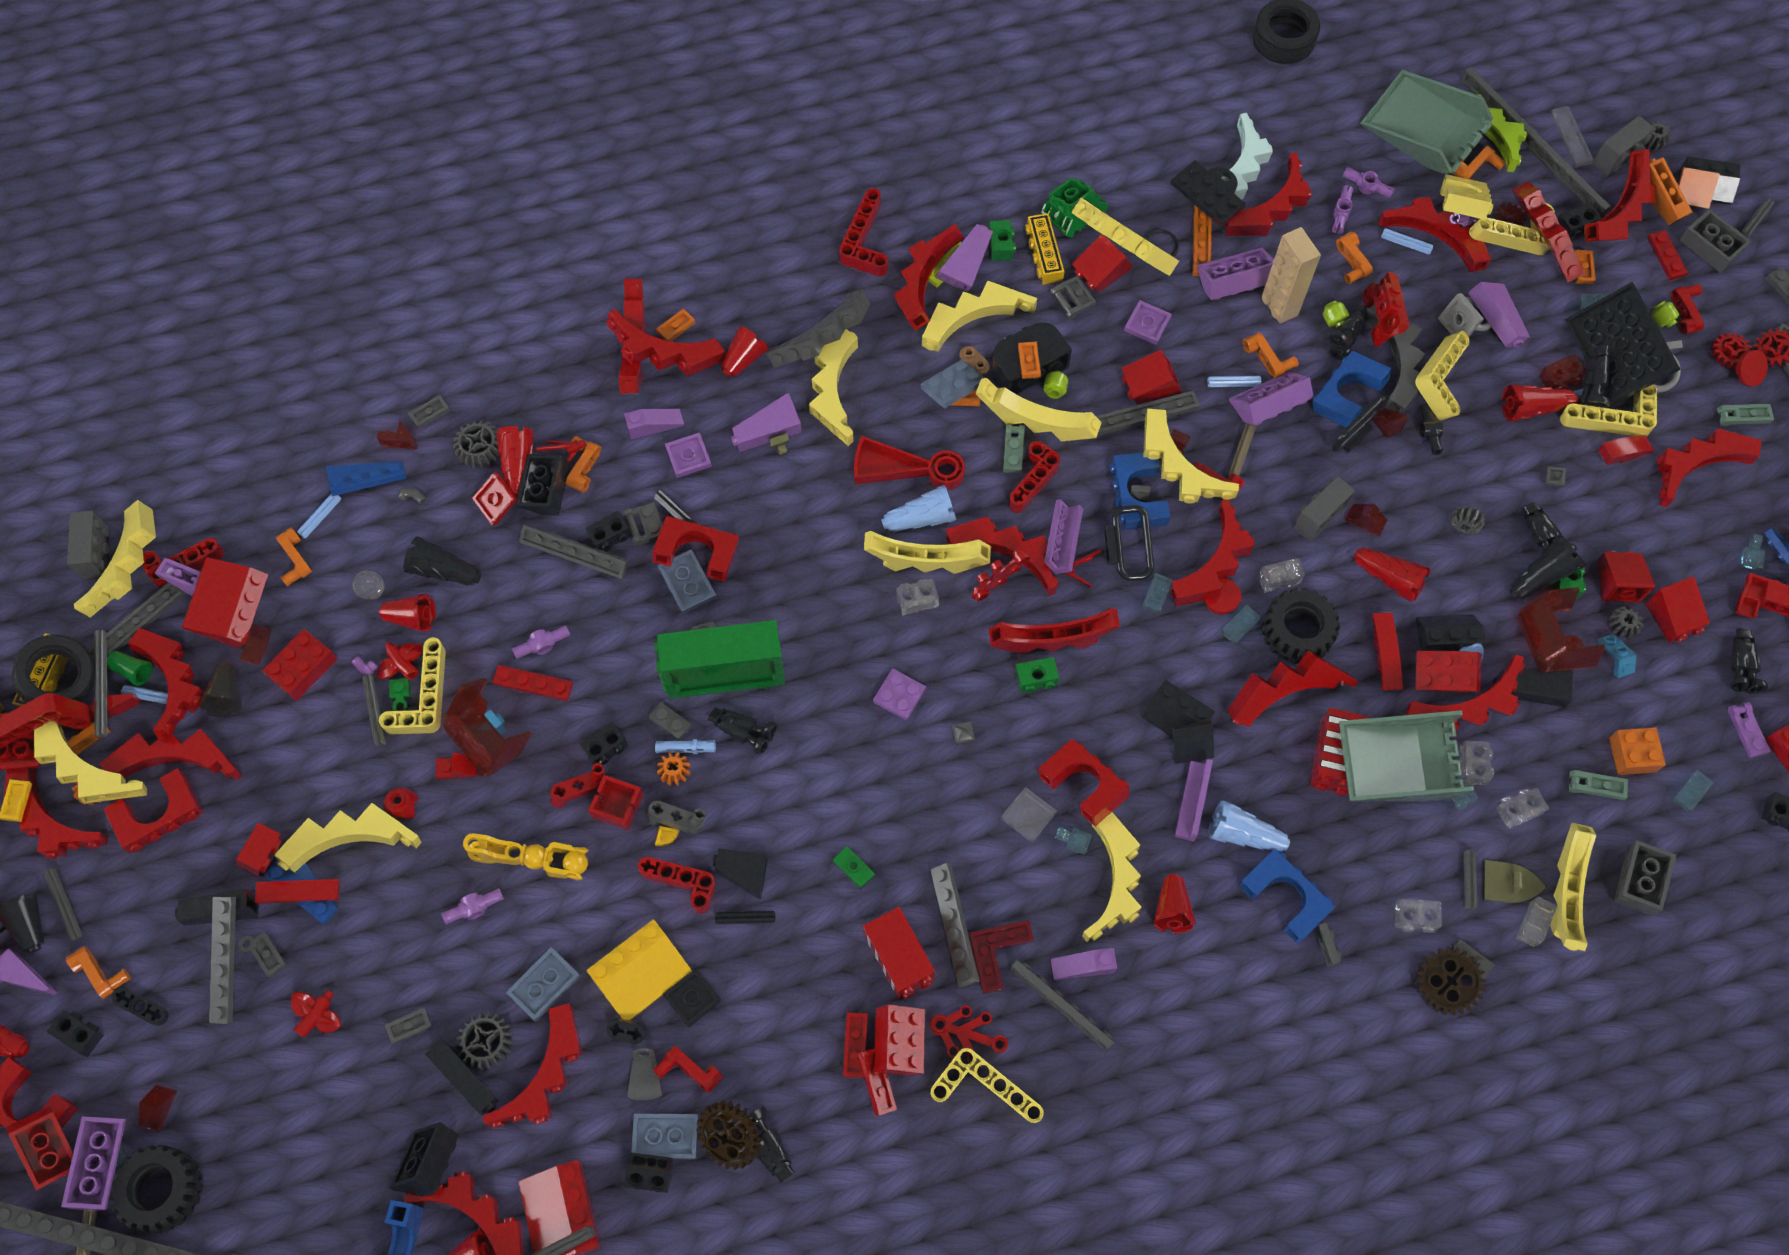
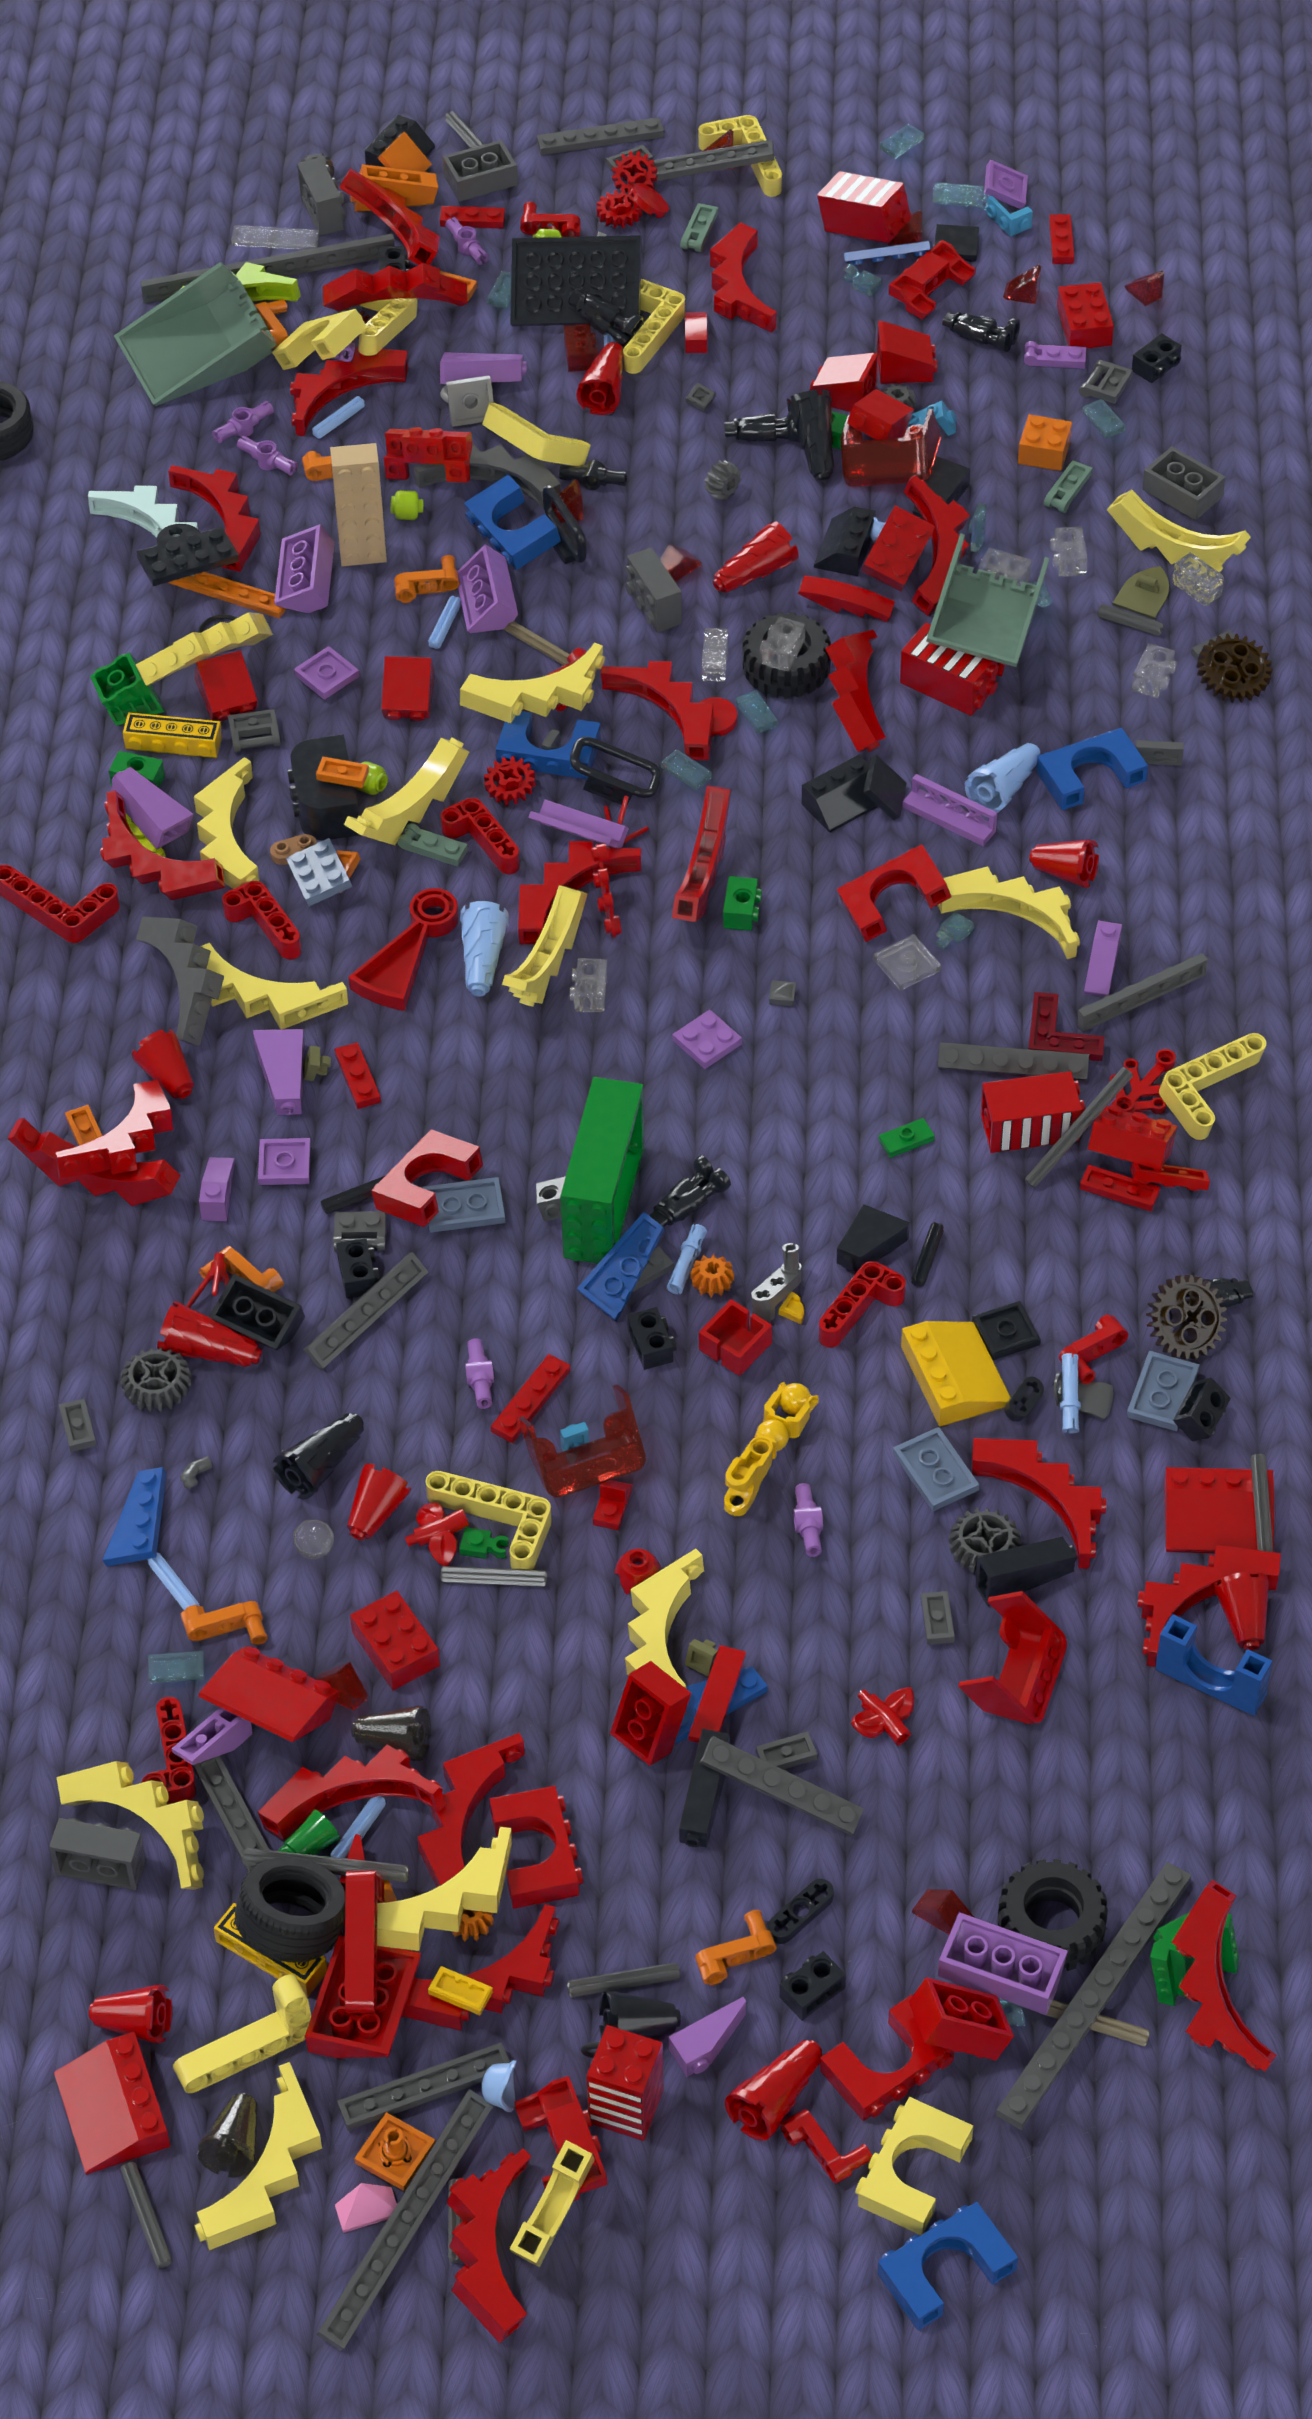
camera: 70 degrees left, 15 degrees down
(252, 540) = (176, 1666): none -> clear light blue plate
(335, 870) = (701, 1656): none -> olive tile
(363, 667) = (430, 1574): medium lavender arm -> none
(370, 1108) = (1030, 1665): none -> red windscreen
(400, 439) = (102, 1464): clear red slope -> none
(425, 1160) = (1113, 1622): black slope -> none
(494, 498) = (251, 1374): tile -> none
(566, 790) = (694, 1364): red beam -> none
(627, 1067) = (1070, 1403): none -> light blue pin
(653, 703) = (619, 1271): none -> blue wing
(783, 474) = (357, 1075): none -> red plate
(888, 995) = (1079, 1127): none -> dark grey axle
(897, 368) = (256, 901): none -> red beam
(1085, 472) = (509, 780): none -> red gear
(1136, 414) = (448, 699): dark grey plate -> none
(1294, 621) = (782, 643): none -> clear brick
(1350, 330) = (442, 503): black piece -> none
(1508, 727) = (977, 527): none -> clear light blue plate
(1584, 612) = (880, 416): none -> red slope
(1636, 259) = (467, 240): none -> medium lavender pin
(1738, 785) = (1110, 386): none -> dark grey plate

